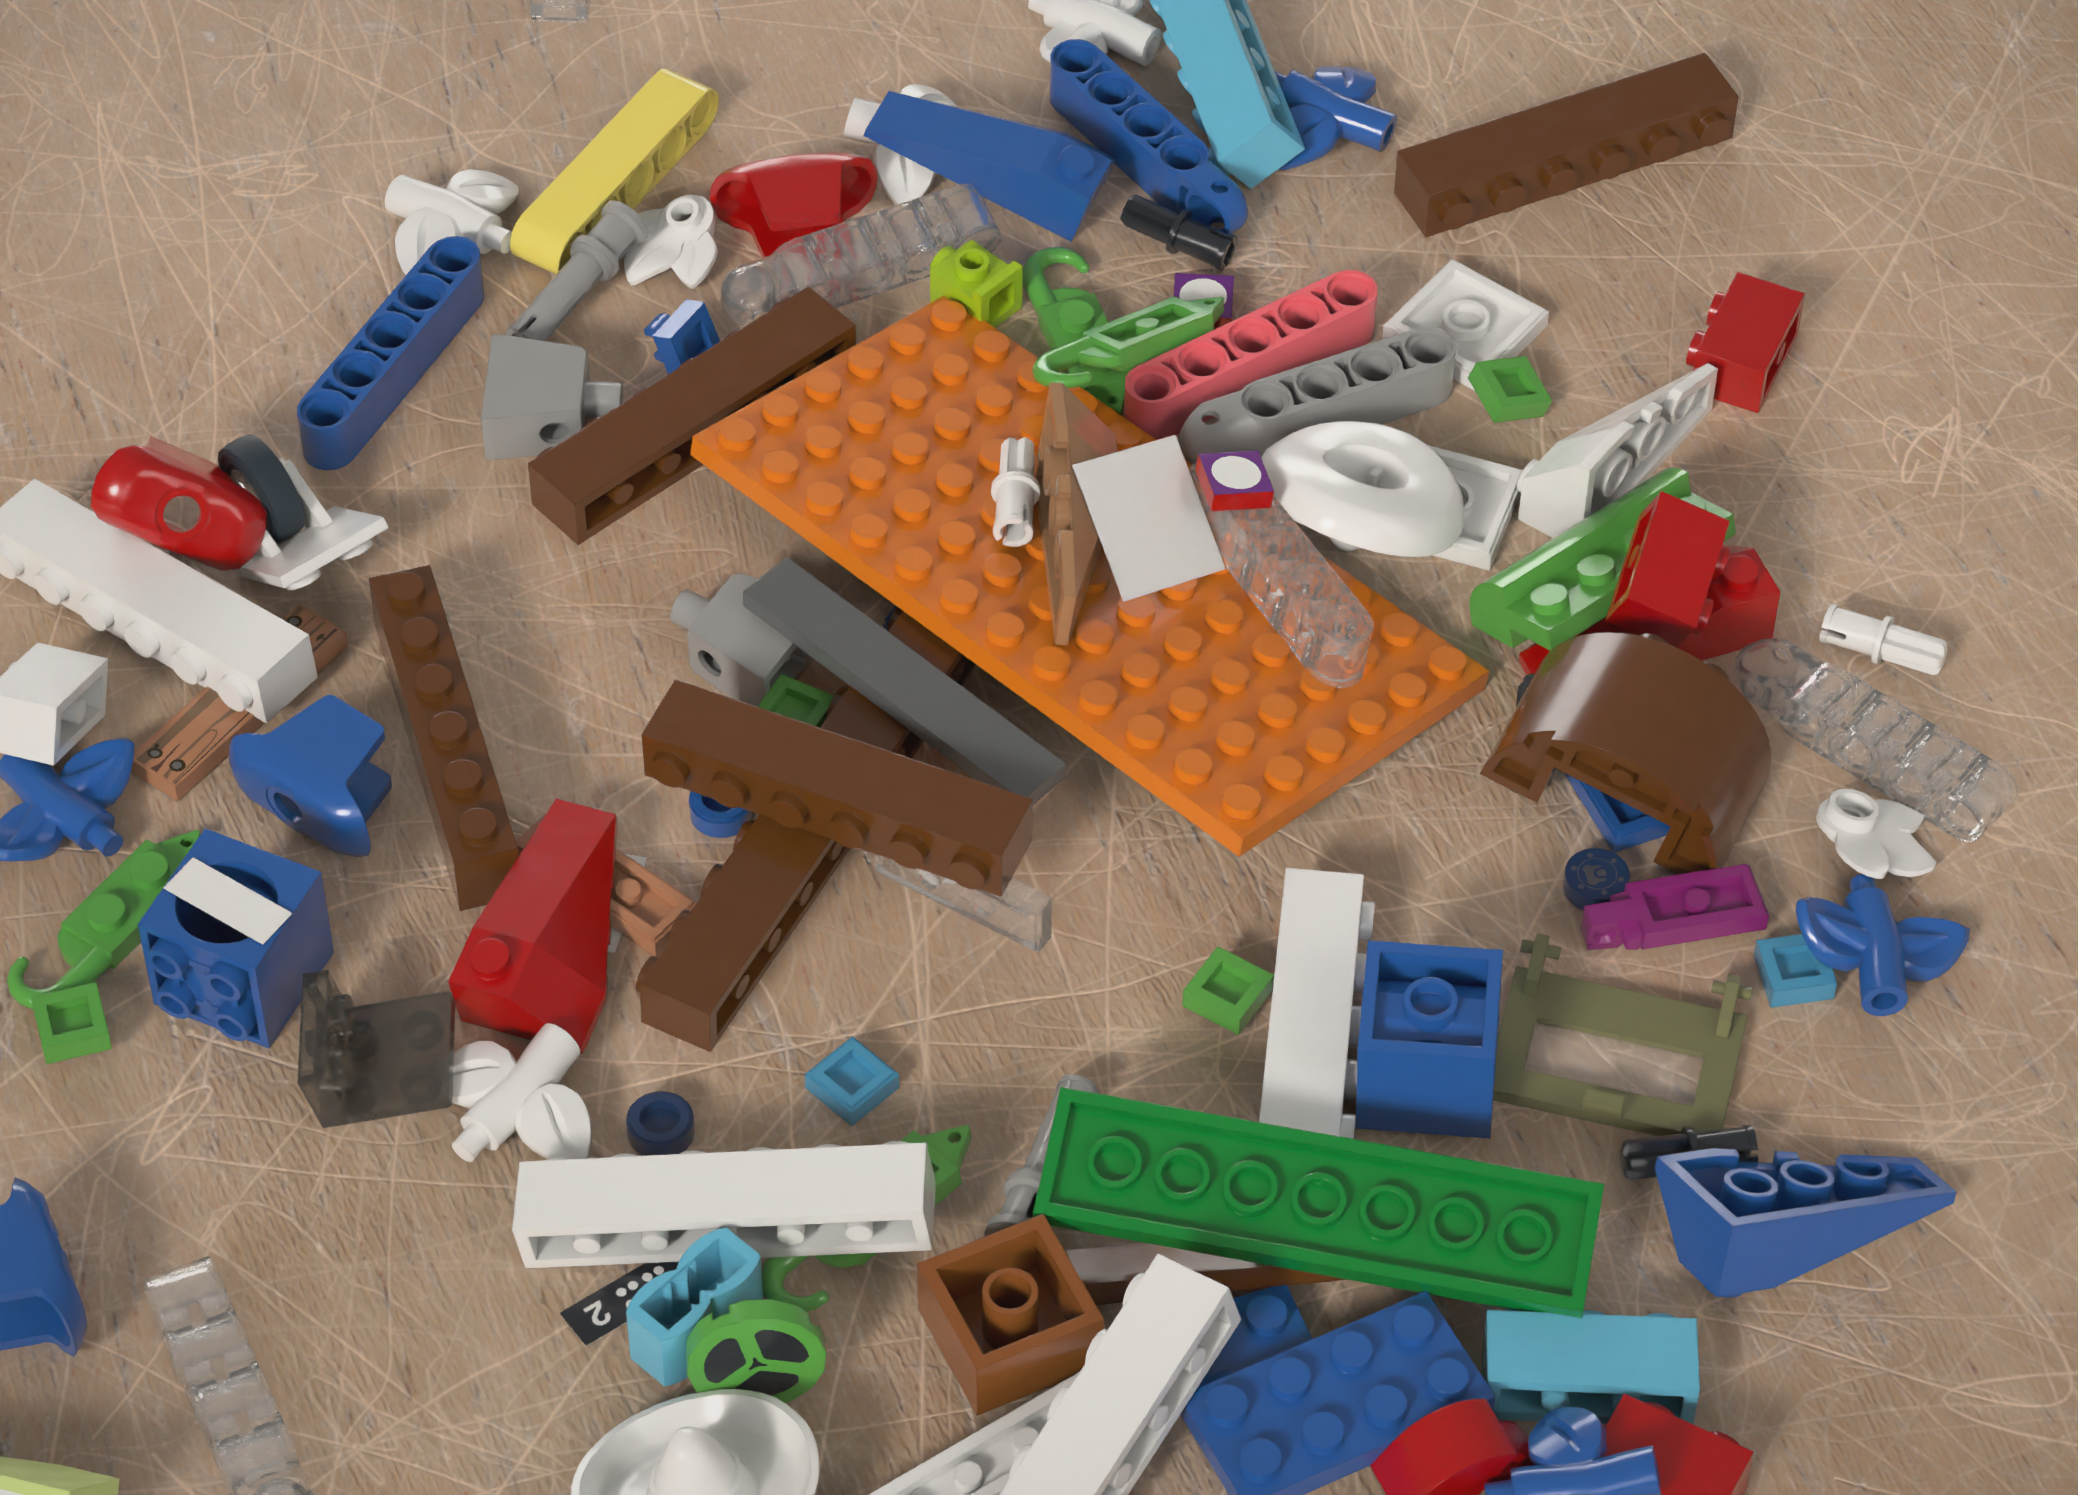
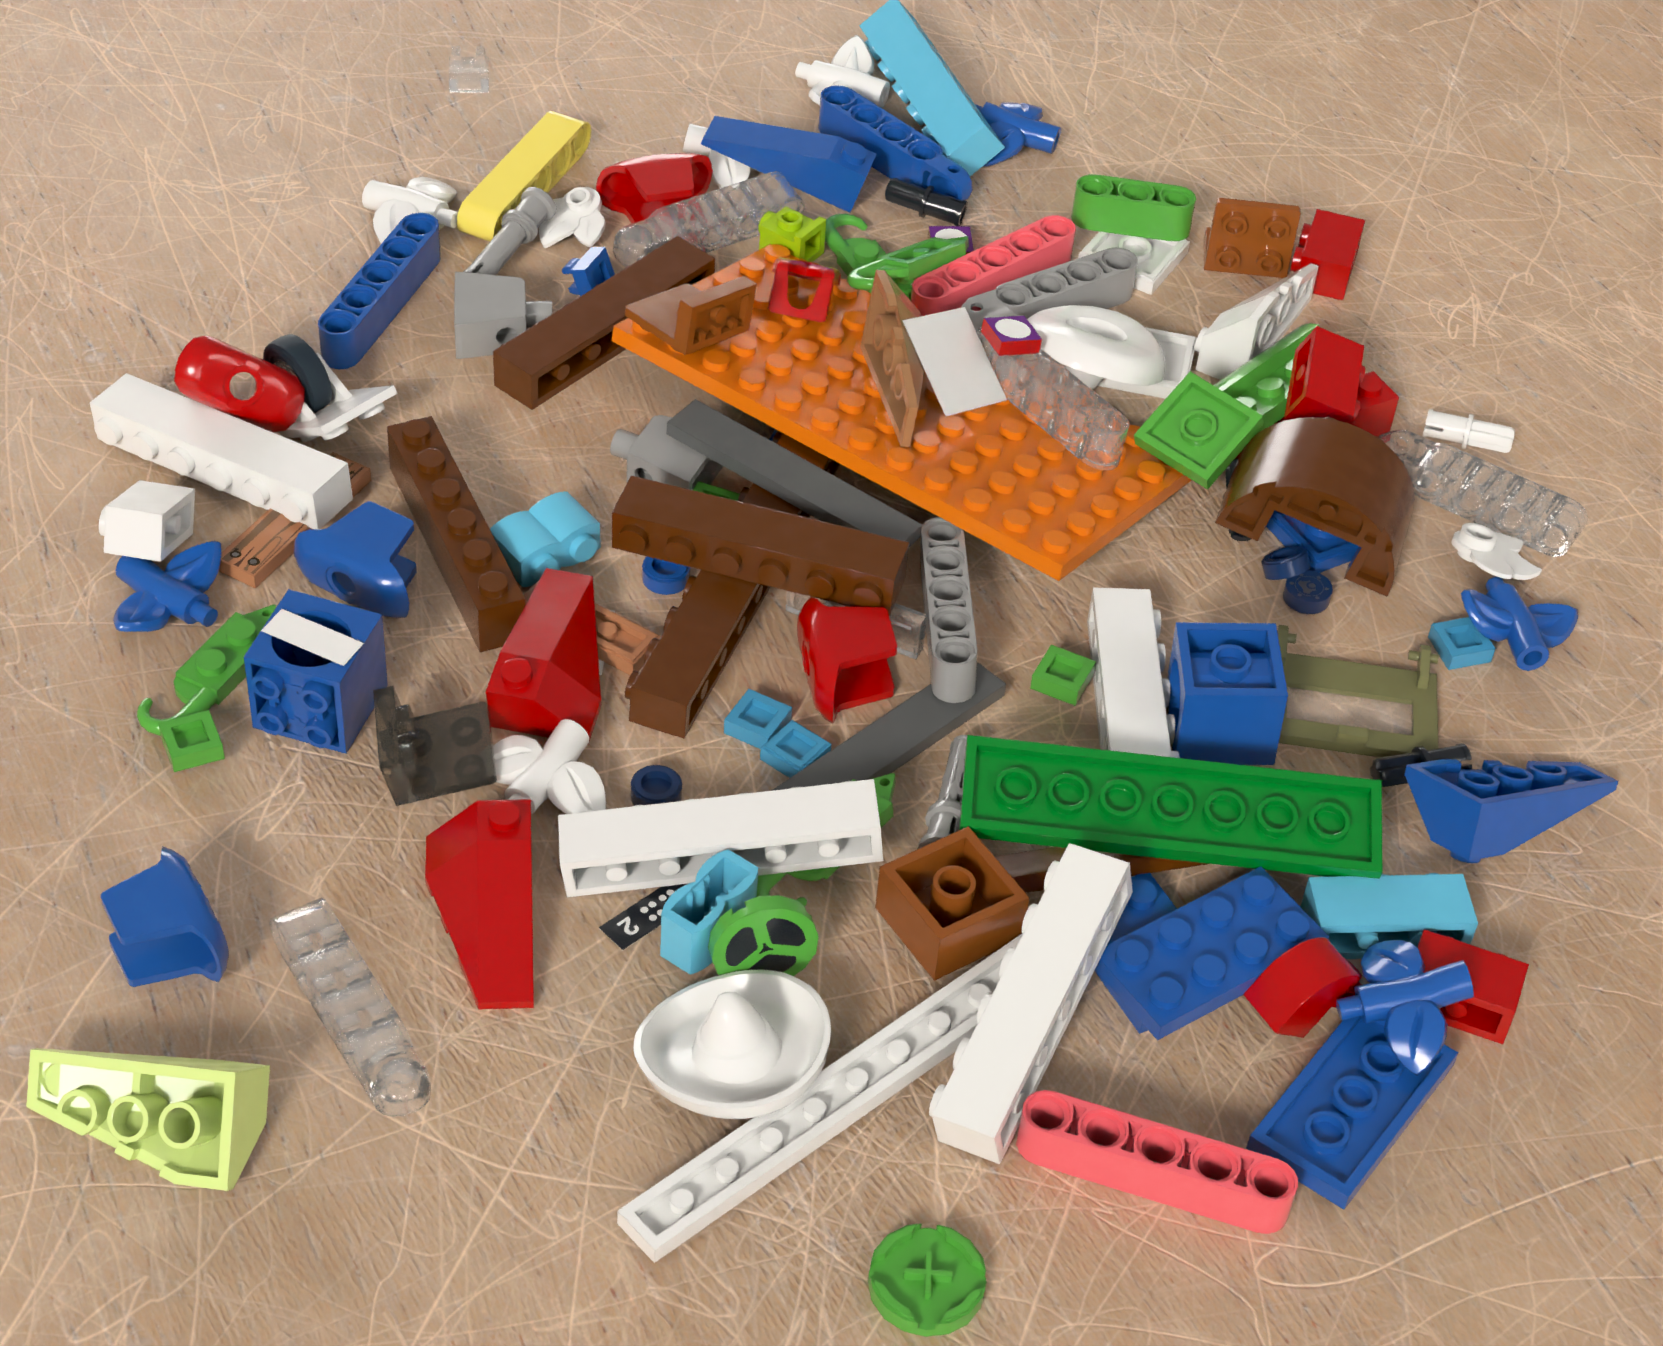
camera: 10 degrees left, 5 degrees down
(419, 1263) = (483, 888): none -> red wedge
(564, 750) = (548, 535): none -> medium azure brick
(798, 431) = (696, 318): none -> dark orange bracket
(808, 1030) = (756, 718): none -> dark azure tile
(935, 951) = (845, 655): none -> red piece
(994, 360) = (779, 293): none -> red piece
(995, 1061) = (898, 735): none -> dark grey tile
(1015, 492) = (854, 352): white axle -> none
(1084, 889) = (948, 611): none -> light grey beam
(1469, 259) = (1133, 207): none -> bright green beam
(1479, 634) = (1198, 430): none -> bright green tile
(1509, 389) = (1175, 287): bright green plate -> none
(1565, 144) = (1184, 138): reddish brown brick -> none
(1571, 837) = (1285, 563): none -> dark blue tile
(1630, 318) = (1251, 237): none -> dark orange bracket
(1677, 910) = (1371, 607): magenta hinge -> none

